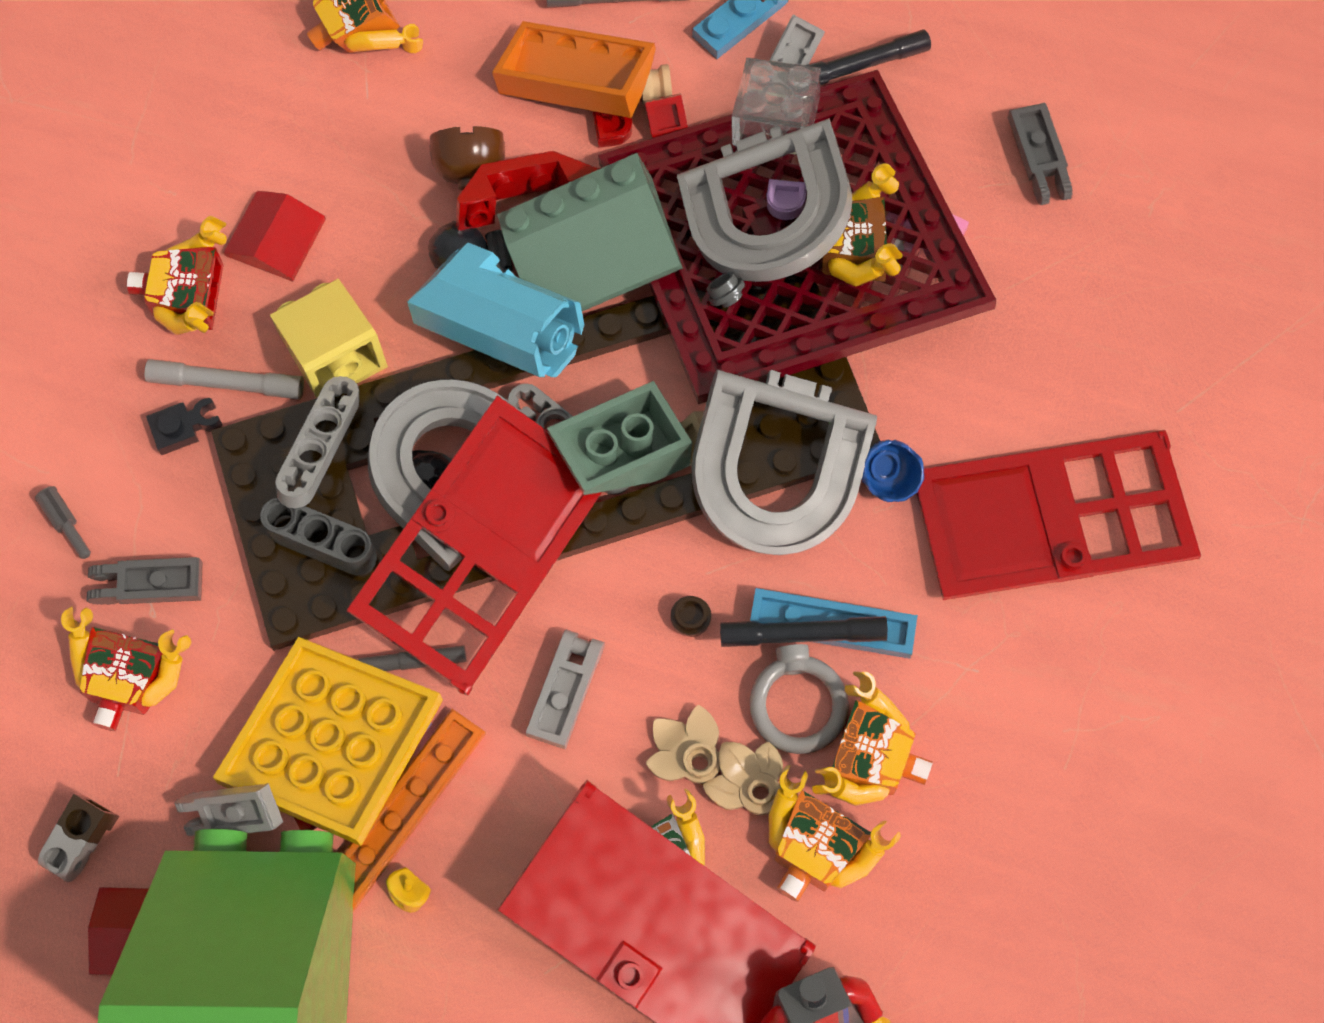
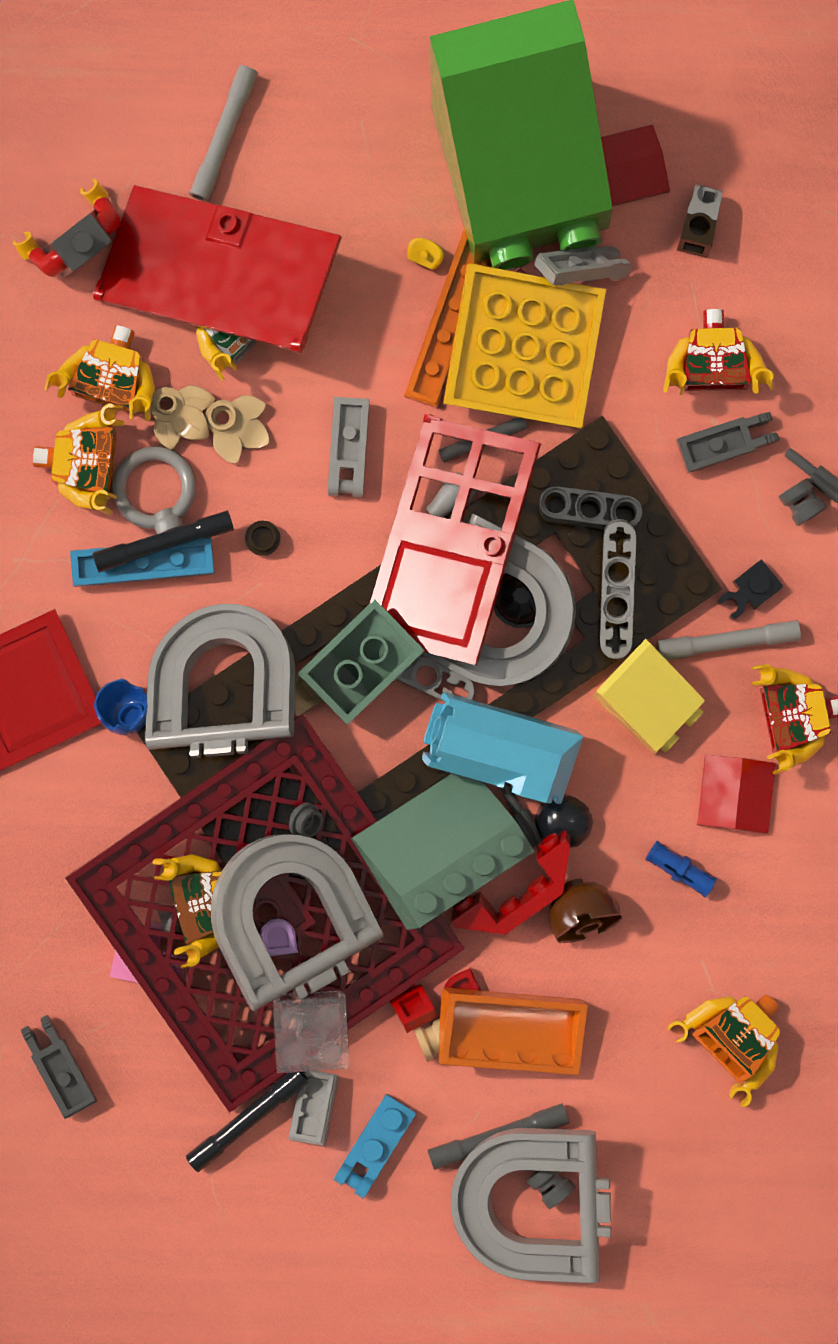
camera: 165 degrees right, 15 degrees up
(90, 494) = (808, 508): none -> dark grey wheel
(356, 177) = (681, 869): none -> blue pin
(475, 597) = (444, 501): none -> light grey cone

